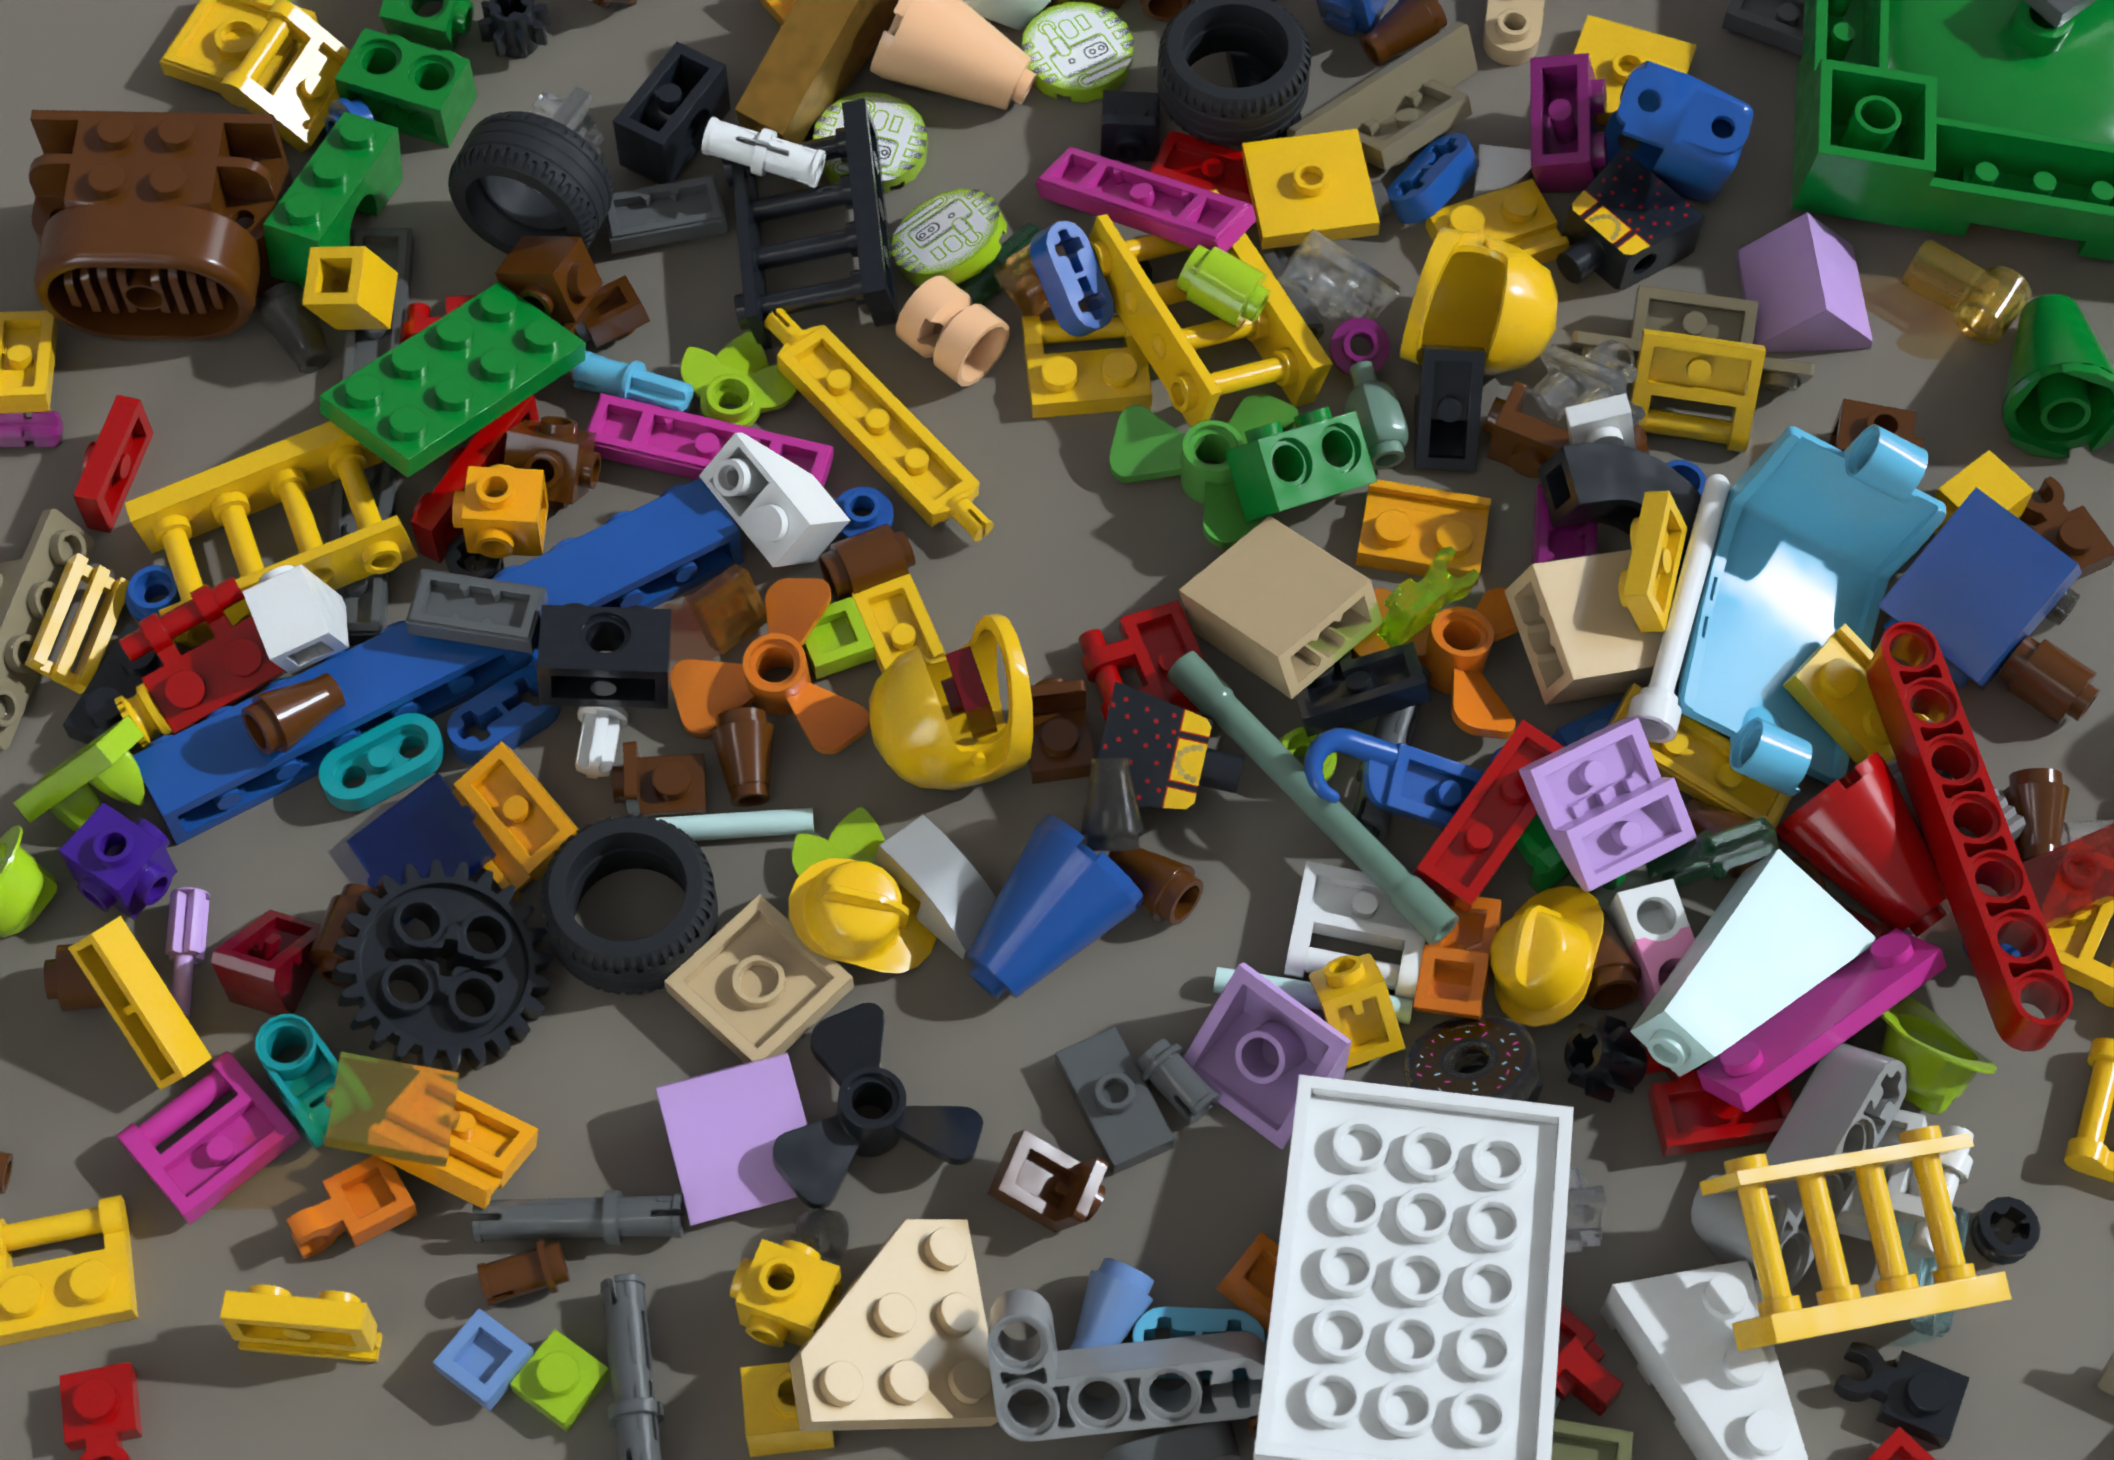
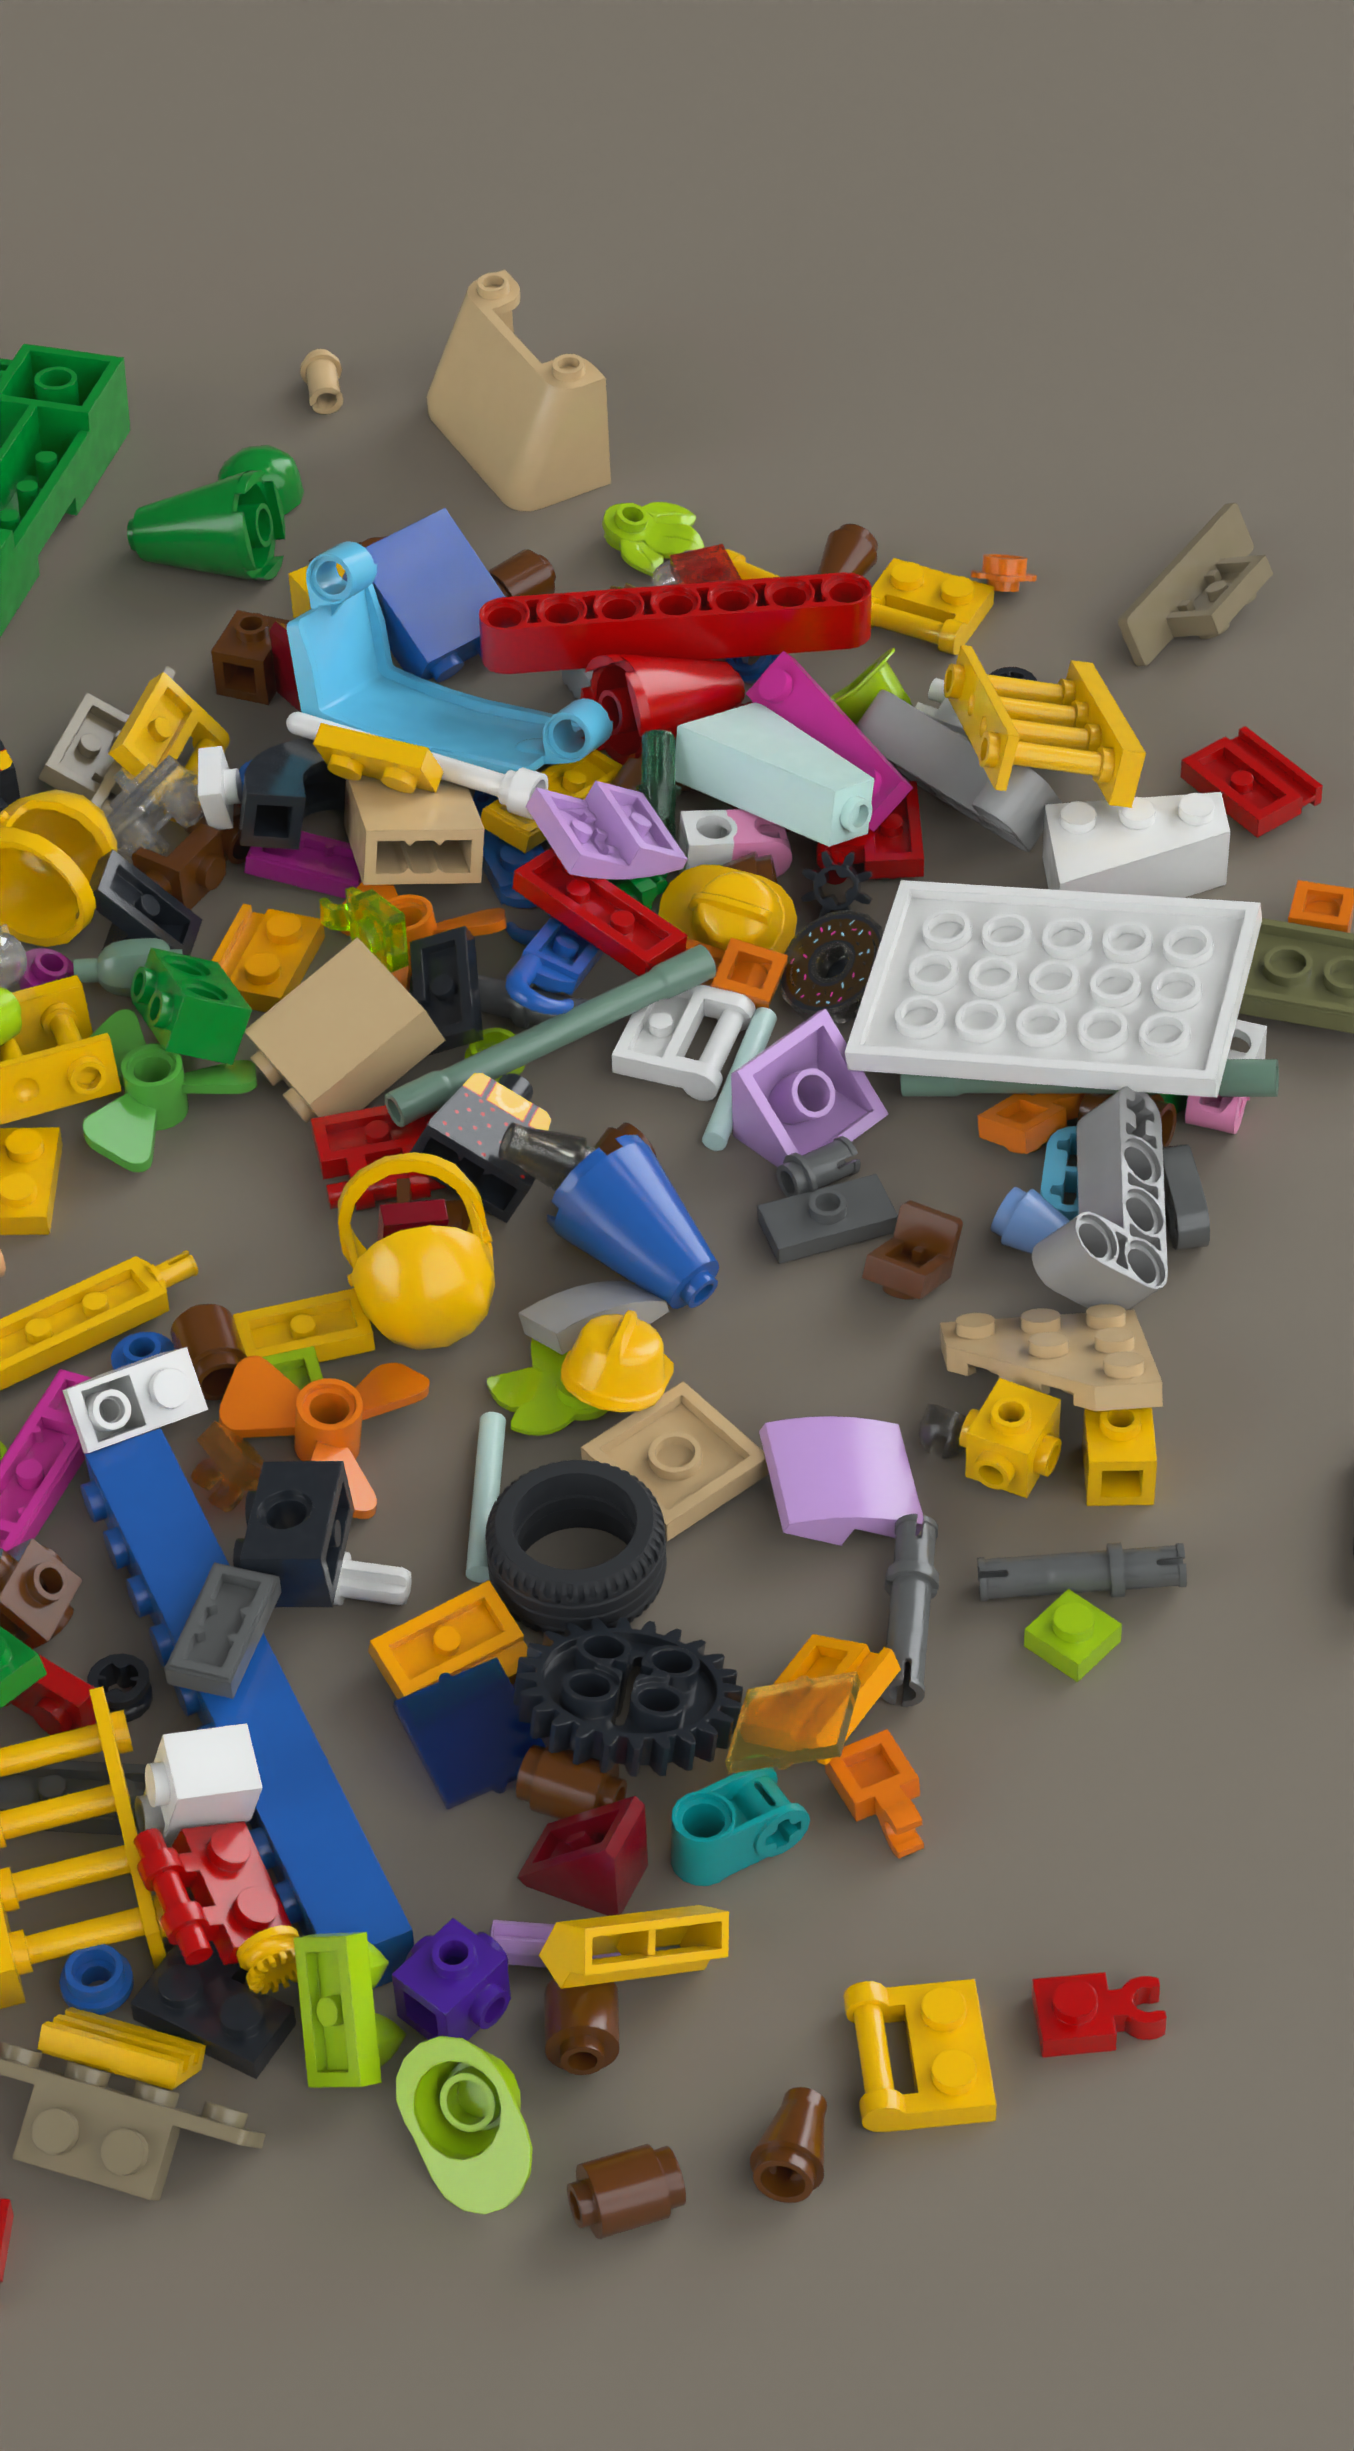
camera: 80 degrees left, 15 degrees down
(217, 1152) = (802, 1903): dark pink plate -> none
(289, 713) = (322, 1794): reddish brown cone -> none
(323, 1327) = (1008, 1828): yellow plate -> none
(380, 761) = (367, 1768): teal plate -> none
(483, 1359) = (1052, 1684): medium blue plate -> none
(502, 511) = (91, 1618): light orange brick -> none
(502, 714) = (333, 1658): blue beam -> none
(523, 1273) = (959, 1640): reddish brown pin -> none
(660, 784) = (434, 1534): reddish brown bracket -> none
(745, 754) = (414, 1460): reddish brown cone -> none
(821, 1153) = (817, 1381): black piece -> none
(1358, 1006) = (754, 1026): yellow bracket -> none
(1804, 289) = (51, 678): lavender slope -> none
(1837, 695) = (511, 698): yellow plate -> none
(1912, 1393) = (1162, 758): black plate -> none
(1981, 299) = (109, 570): clear yellow piece -> none

